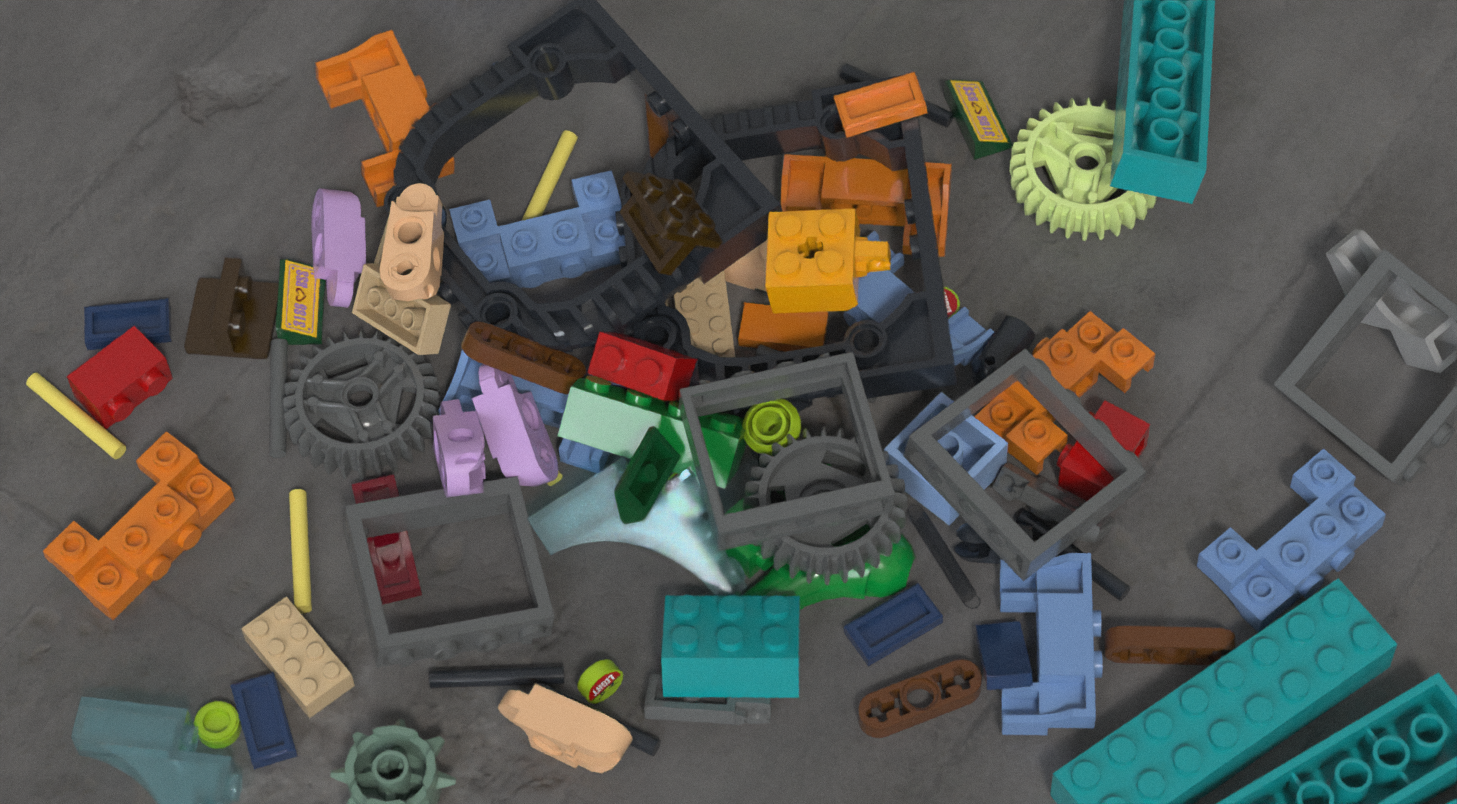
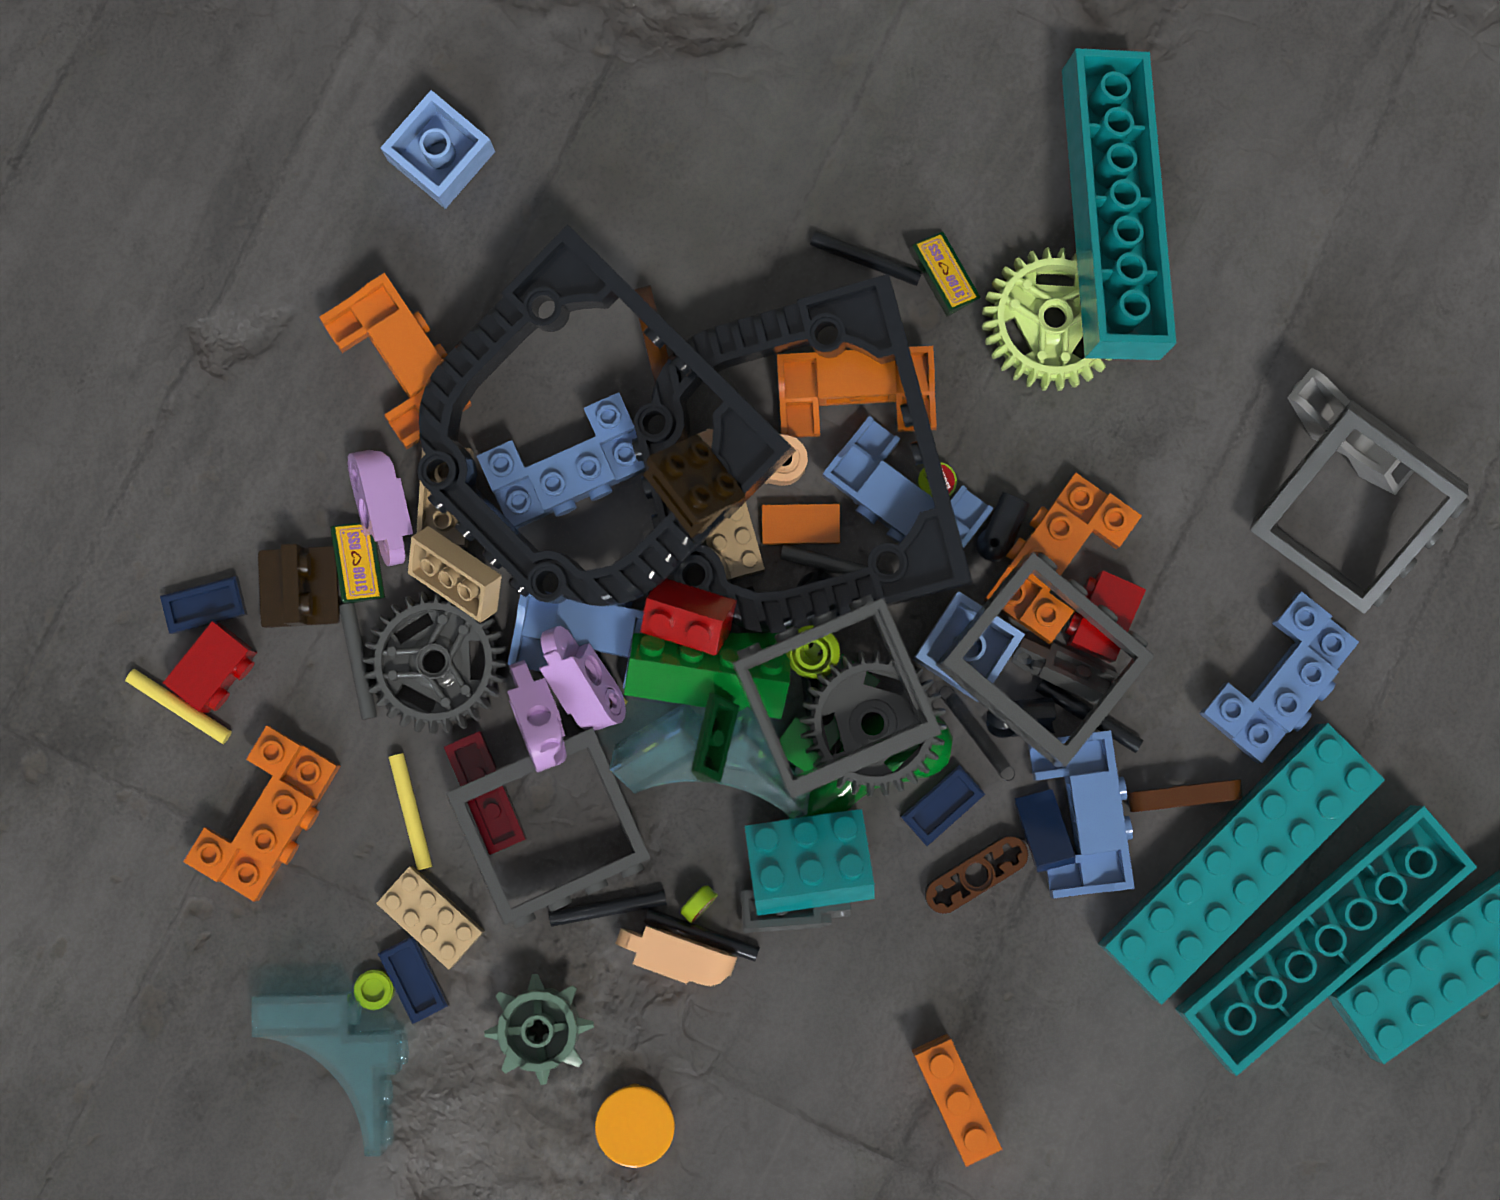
camera: 10 degrees left, 25 degrees up
(413, 218) = (453, 495): light nougat piece -> none
(522, 357) = (564, 632): reddish brown beam -> none
(551, 175) = (559, 400): light yellow bar -> none
(819, 260) = (852, 511): light orange hinge -> none
(880, 104) = (865, 314): orange tile -> none

